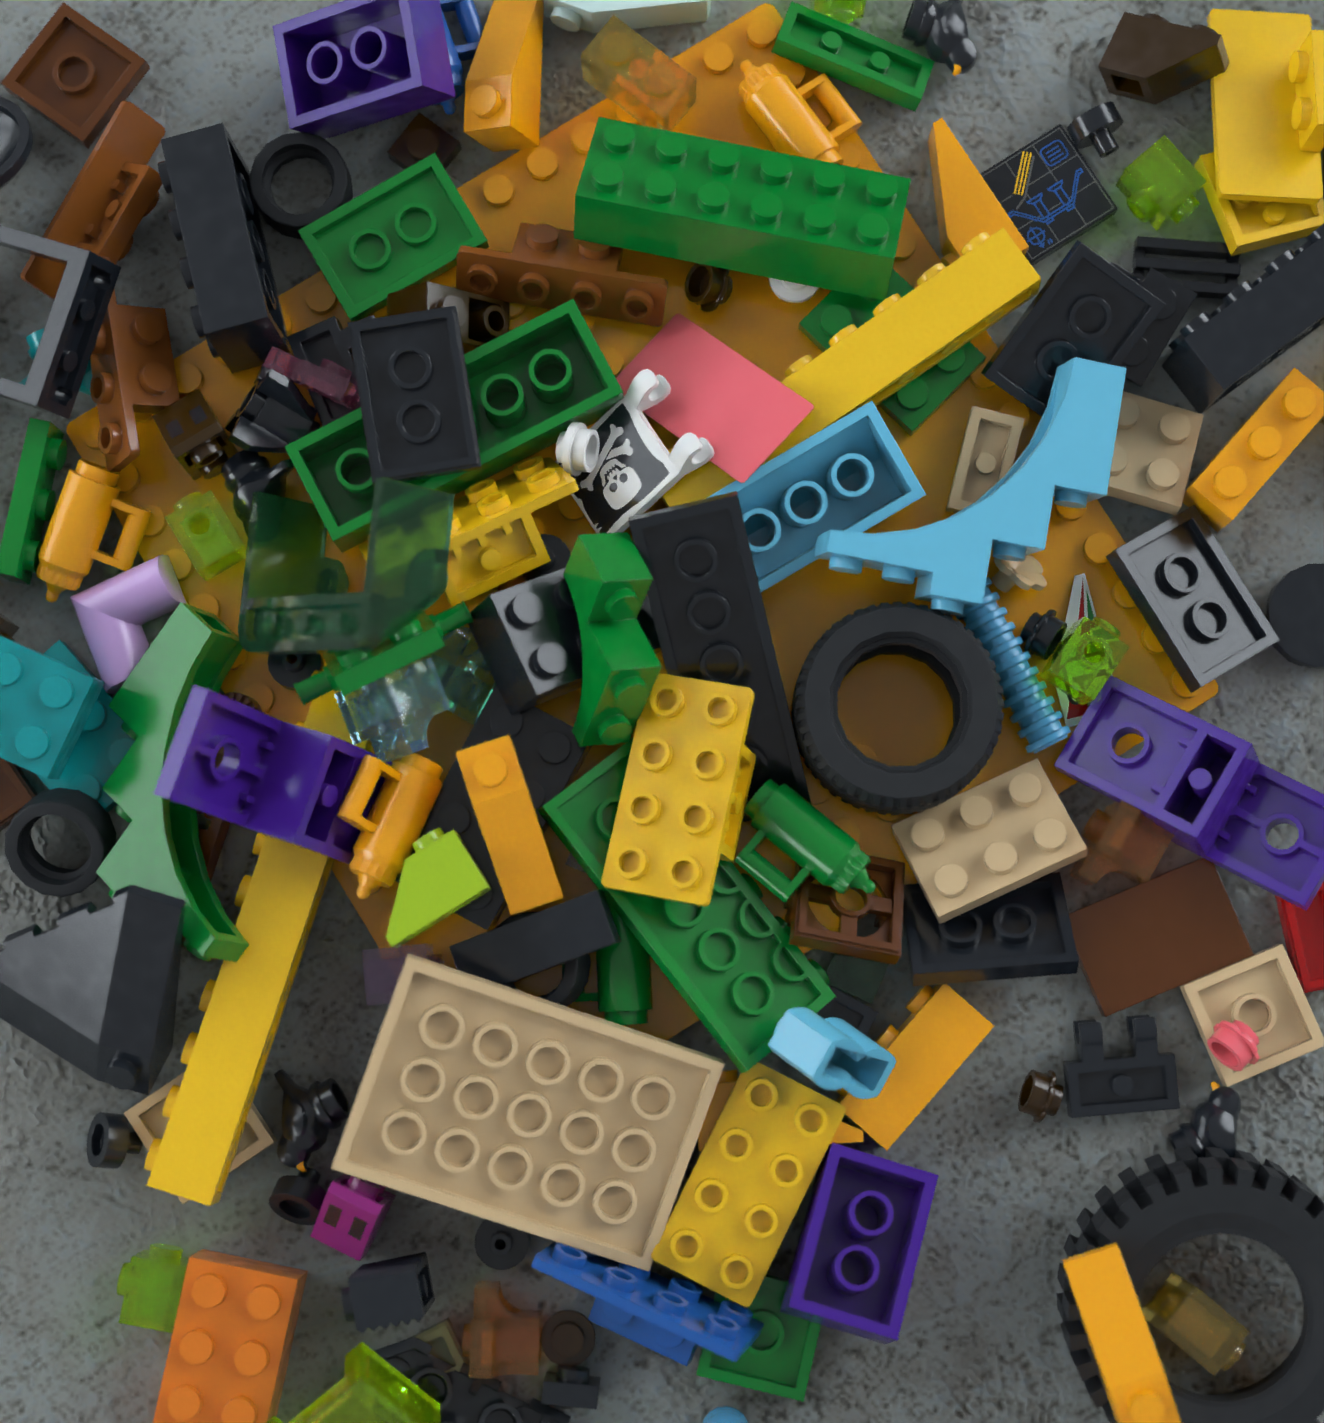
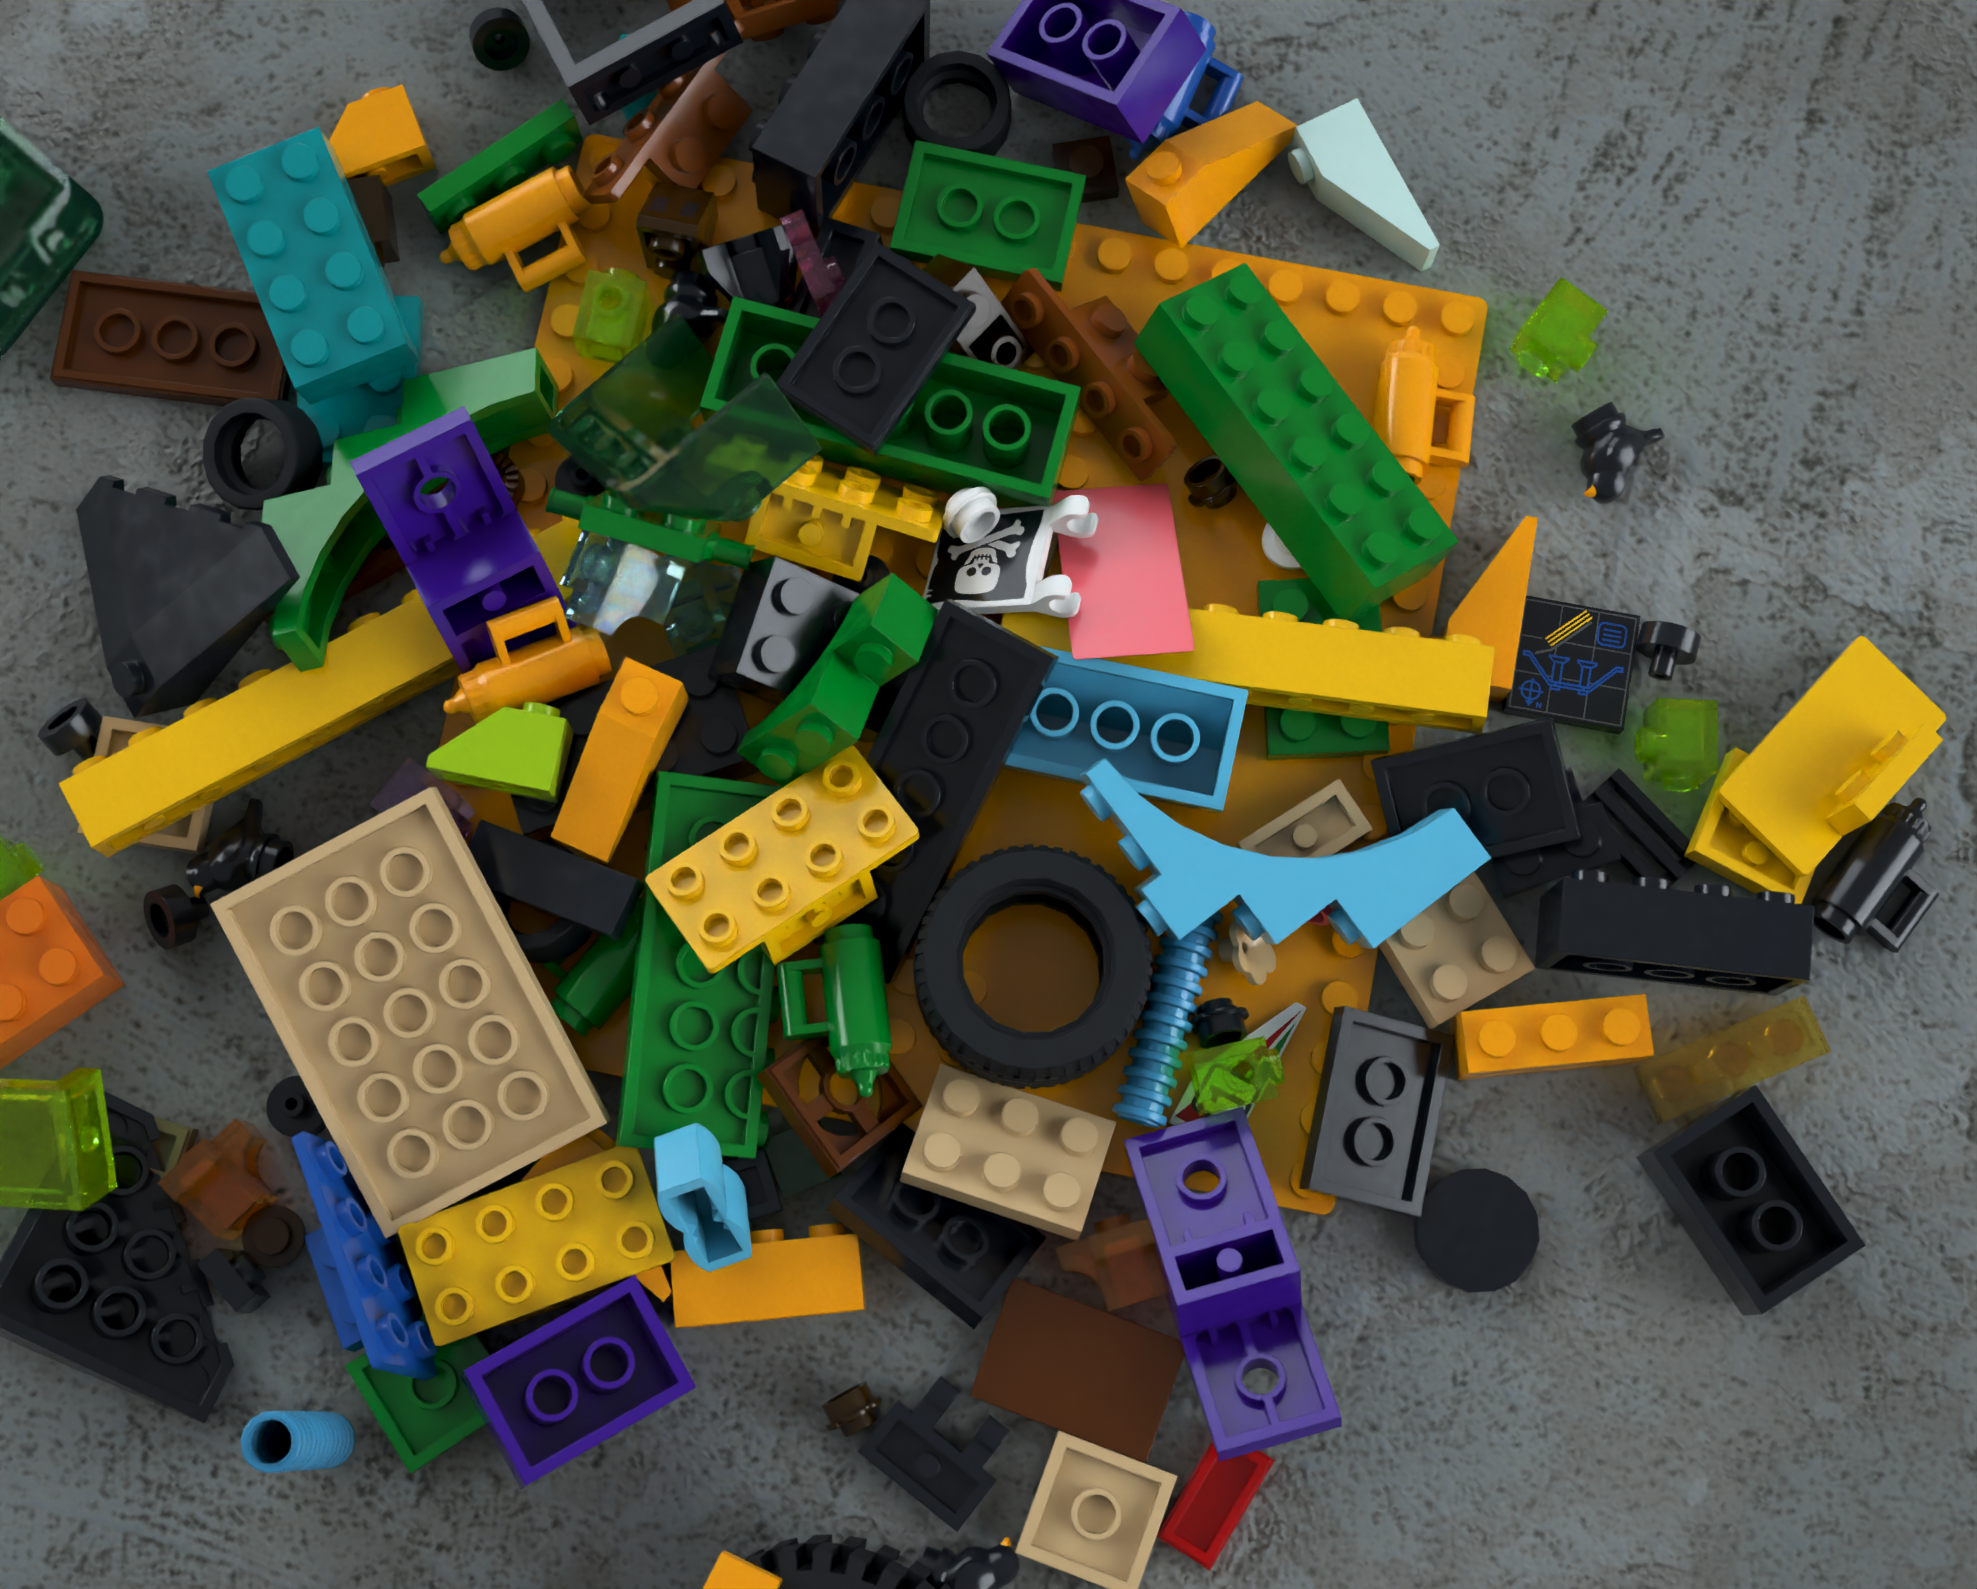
camera: 40 degrees right, 5 degrees down
(117, 609) = (486, 314): lavender brick -> none
(352, 1215) = (198, 967): magenta slope -> none
(388, 1292) = (165, 1056): black brick -> none
(638, 76) = (1312, 261): clear yellow brick -> none
(853, 56) = (1512, 404): green plate -> none
(1159, 58) = (1773, 636): dark brown slope -> none
(1234, 1044) = (1052, 1519): coral plate -> none

